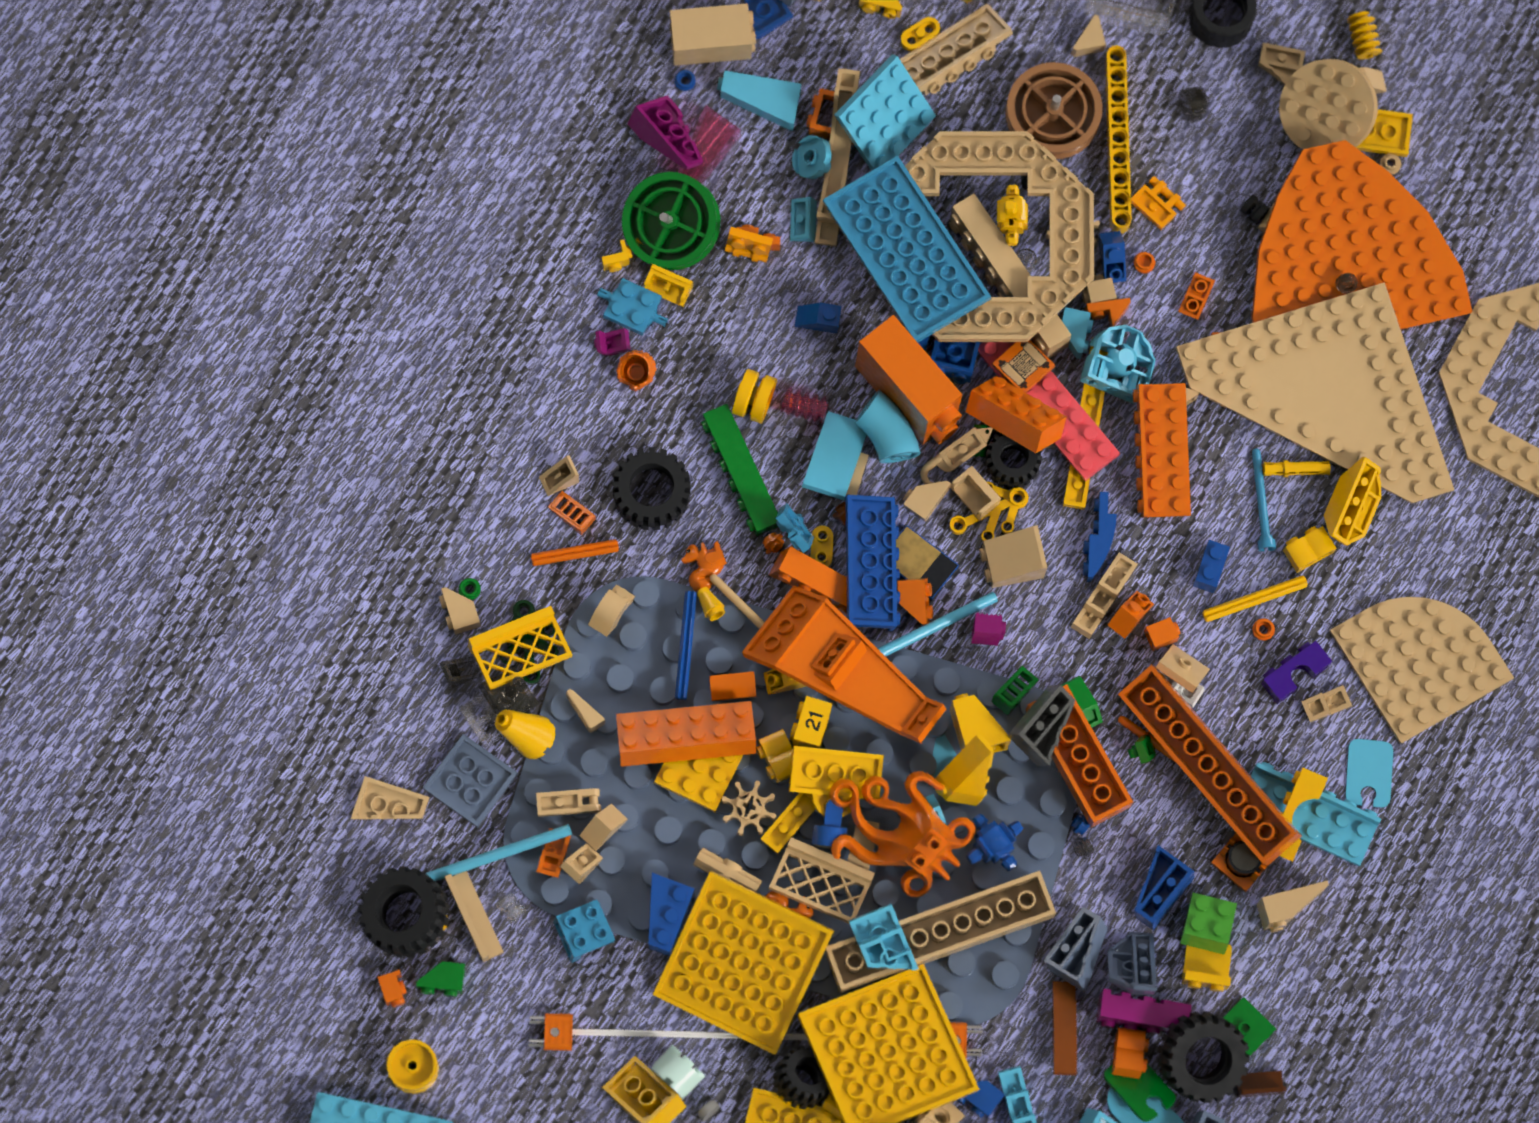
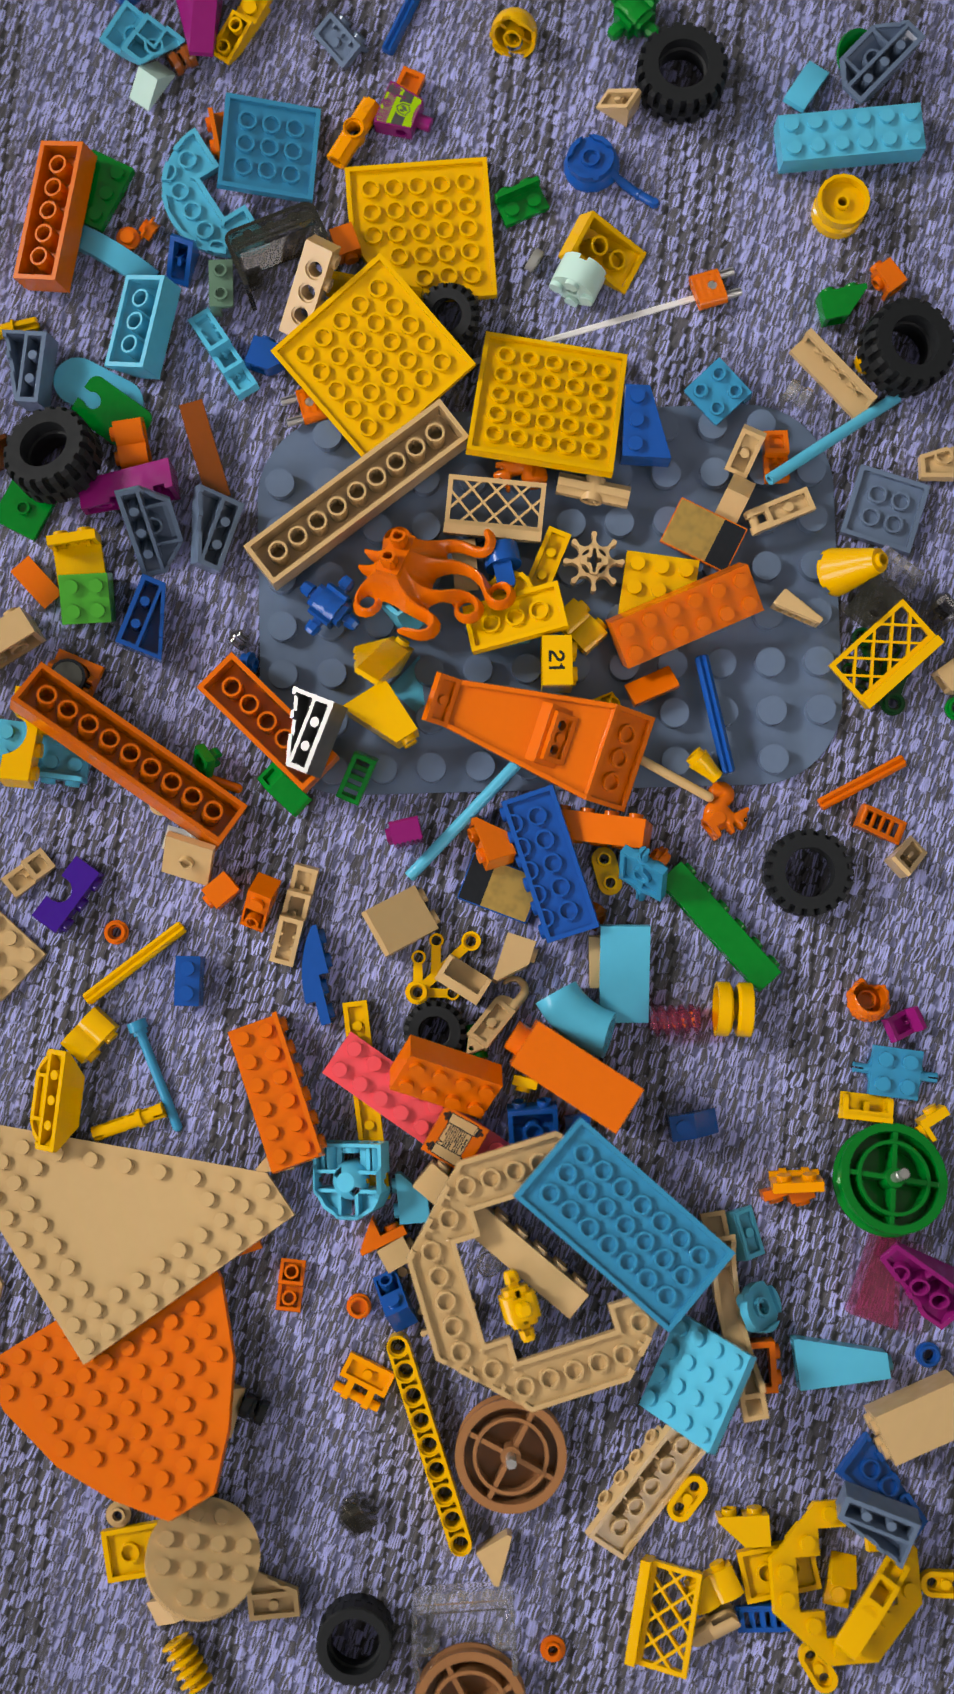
camera: 170 degrees right, 10 degrees up
(610, 610) = (806, 724): tan brick -> none
(643, 803) = (703, 535): none -> pearl gold tile
(882, 940) = (412, 457): medium azure slope -> none
(1251, 957) = (36, 582): none -> orange slope
(1346, 283) = (125, 1349): clear smoke plate -> none

